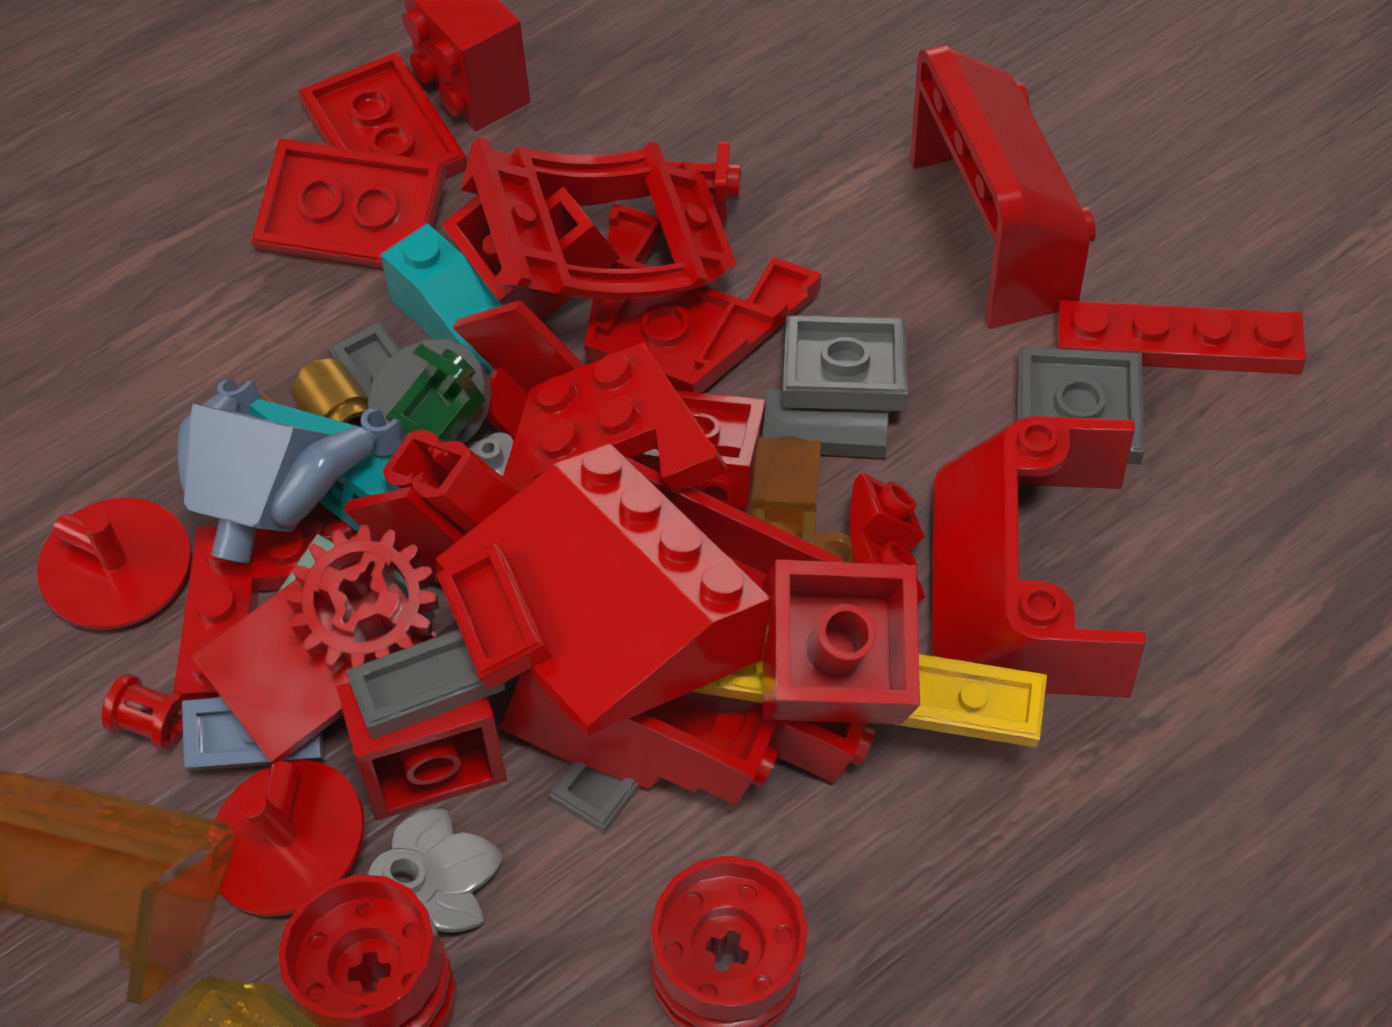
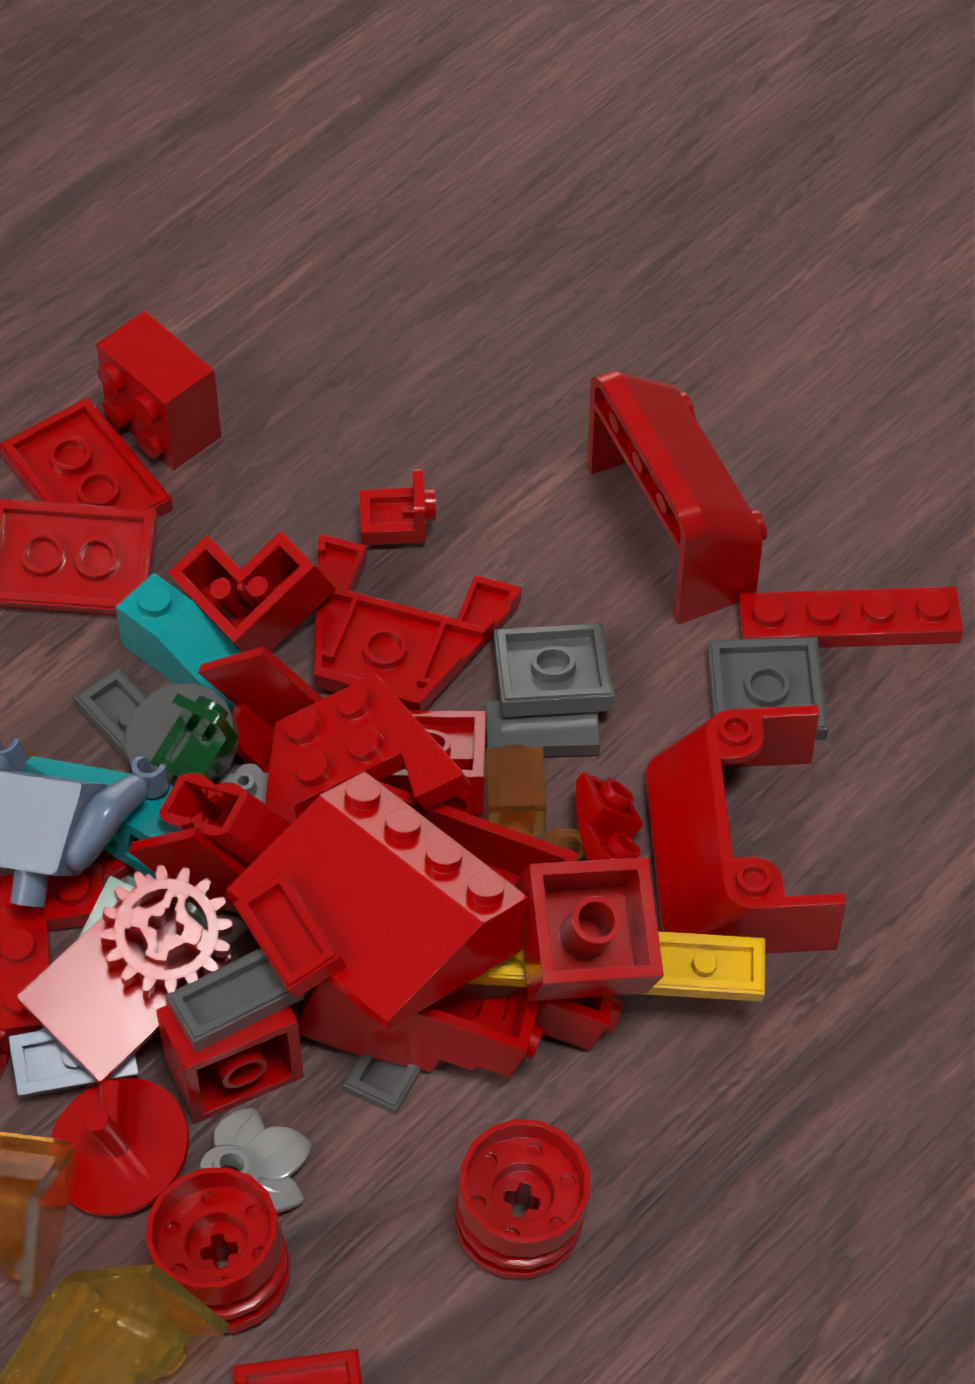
camera: 10 degrees left, 0 degrees up
(330, 391) = (88, 741): pearl gold brick -> none
(531, 259) = (237, 544): red wedge -> none

